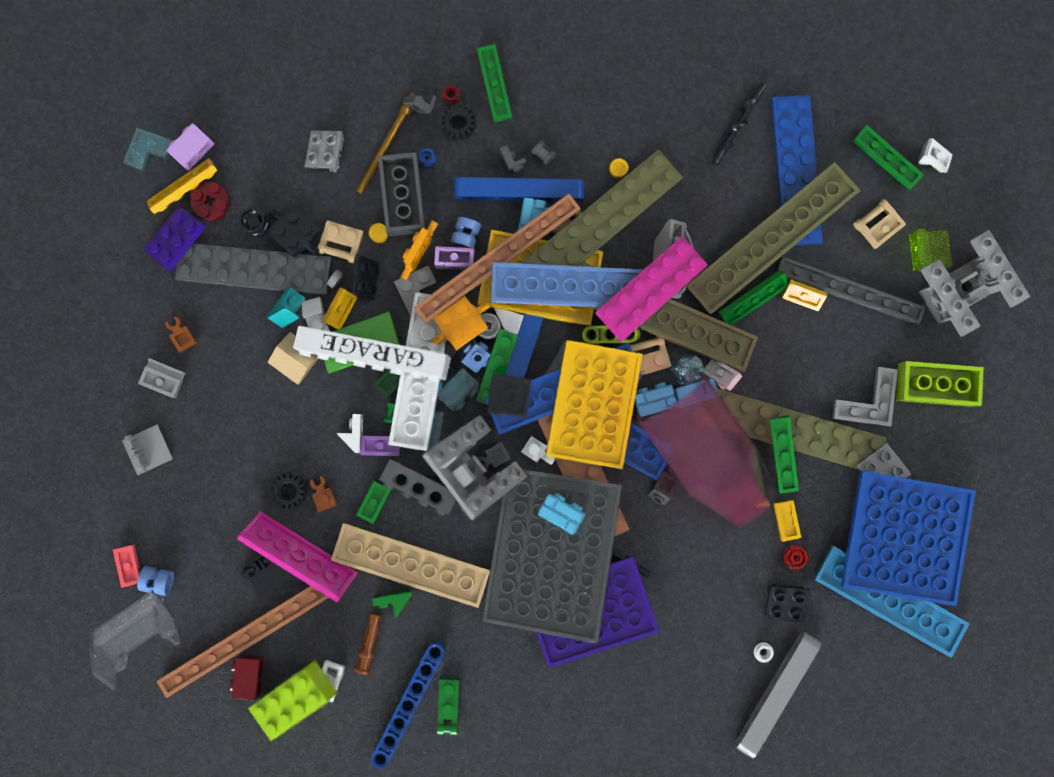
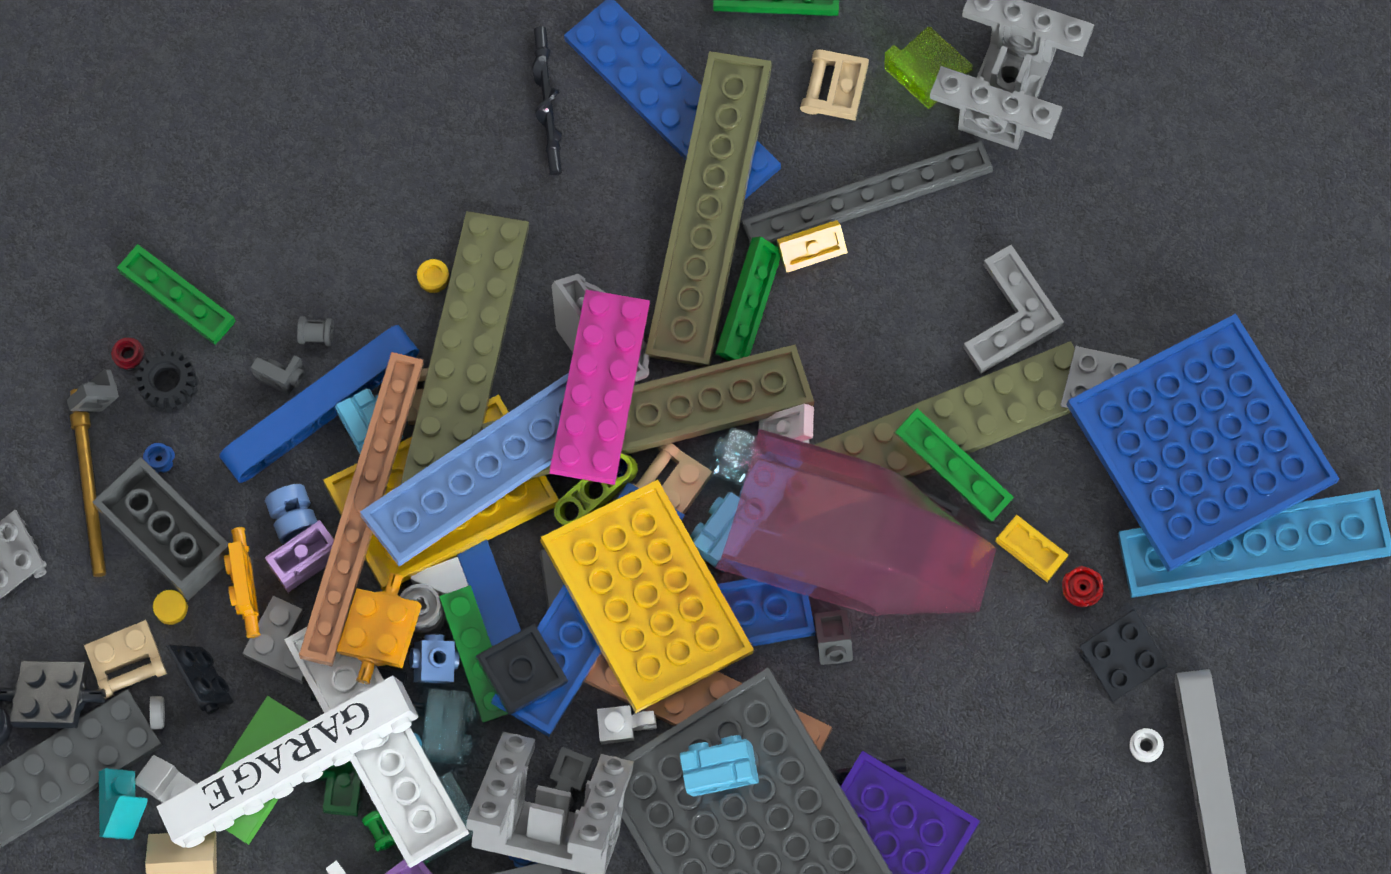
camera: 30 degrees left, 15 degrees down
(339, 308) = (195, 746): yellow plate -> none
(939, 384) = (1079, 220): lime brick -> none

